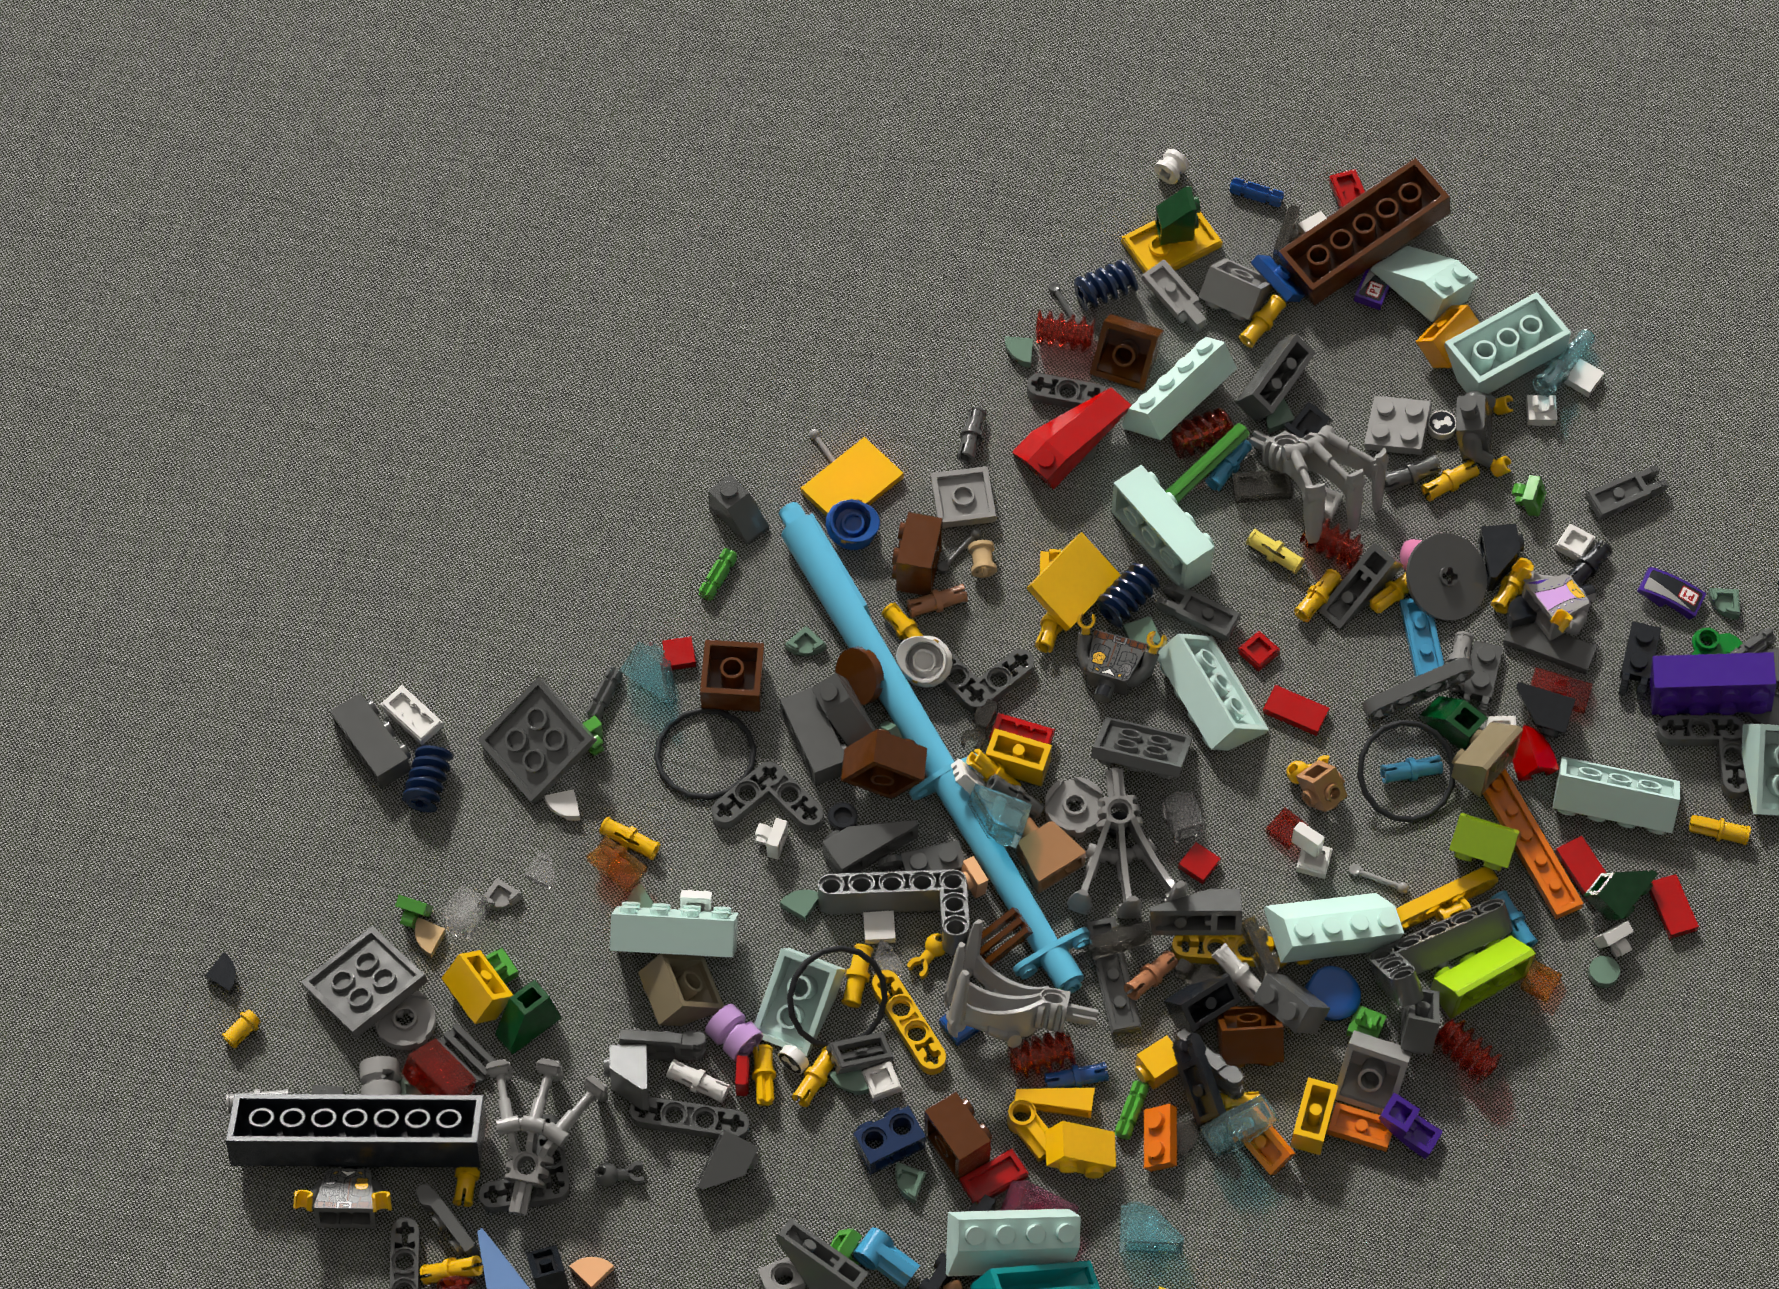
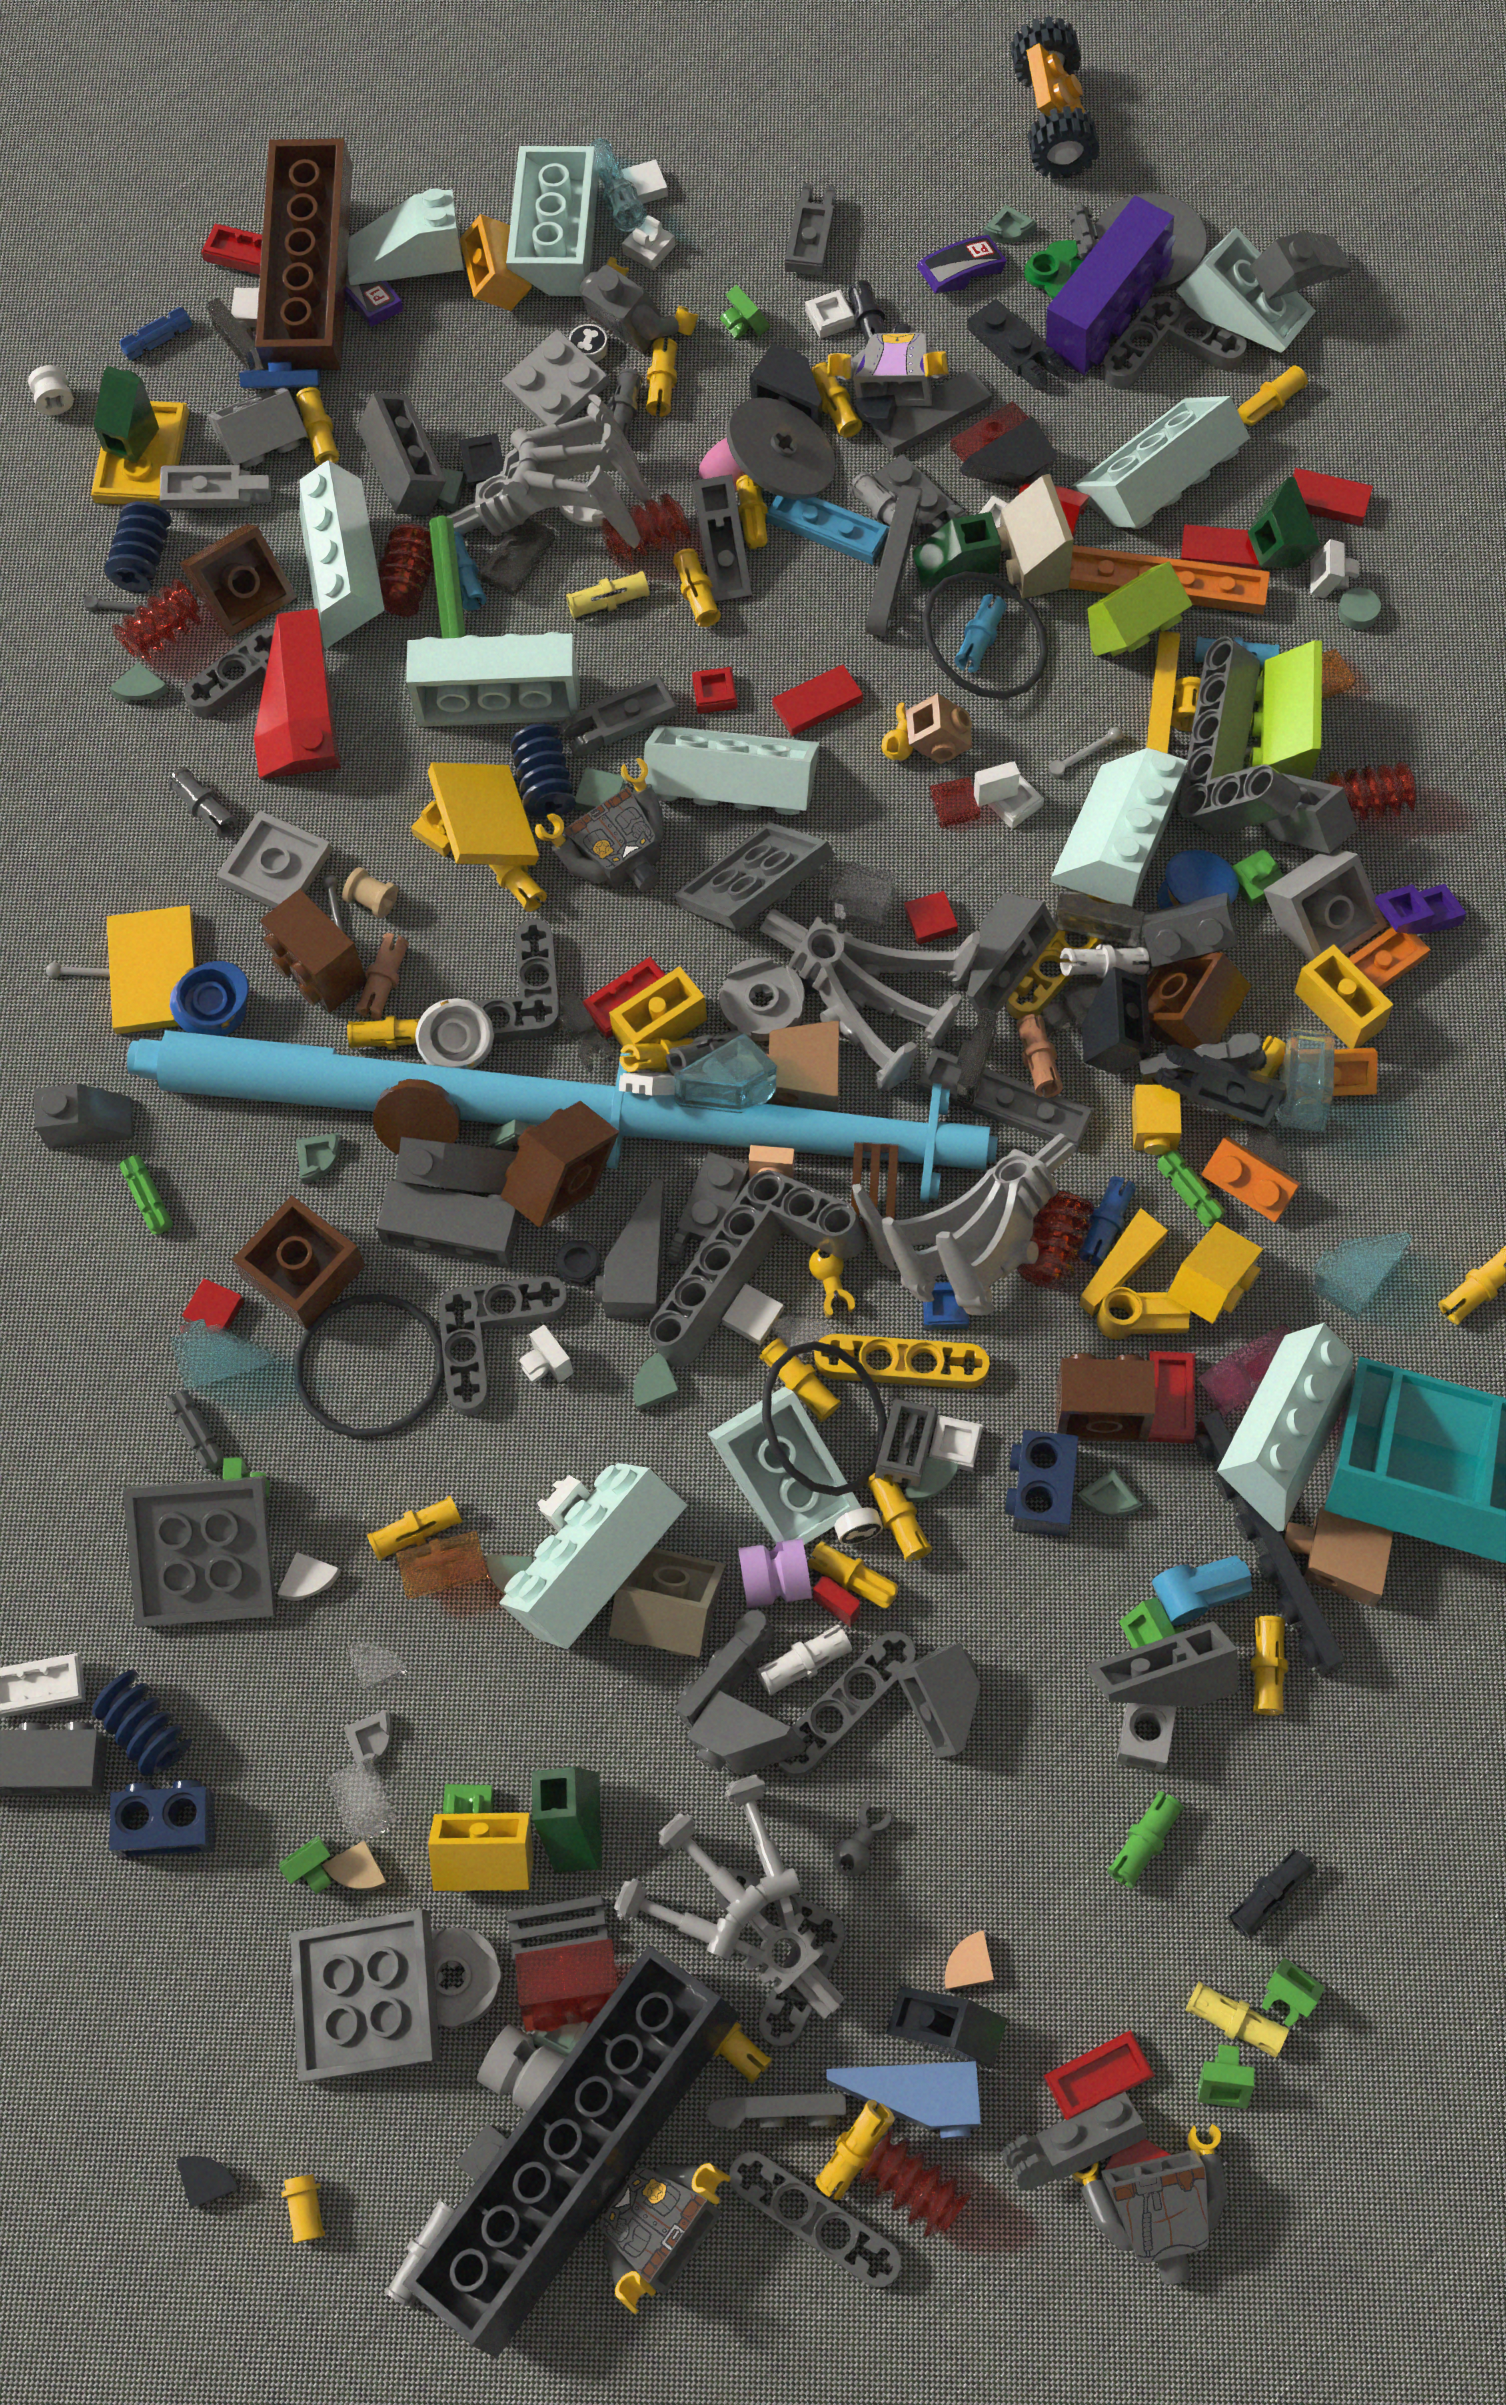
camera: 50 degrees left, 5 degrees up
(381, 827) = (160, 1833): none -> dark blue brick

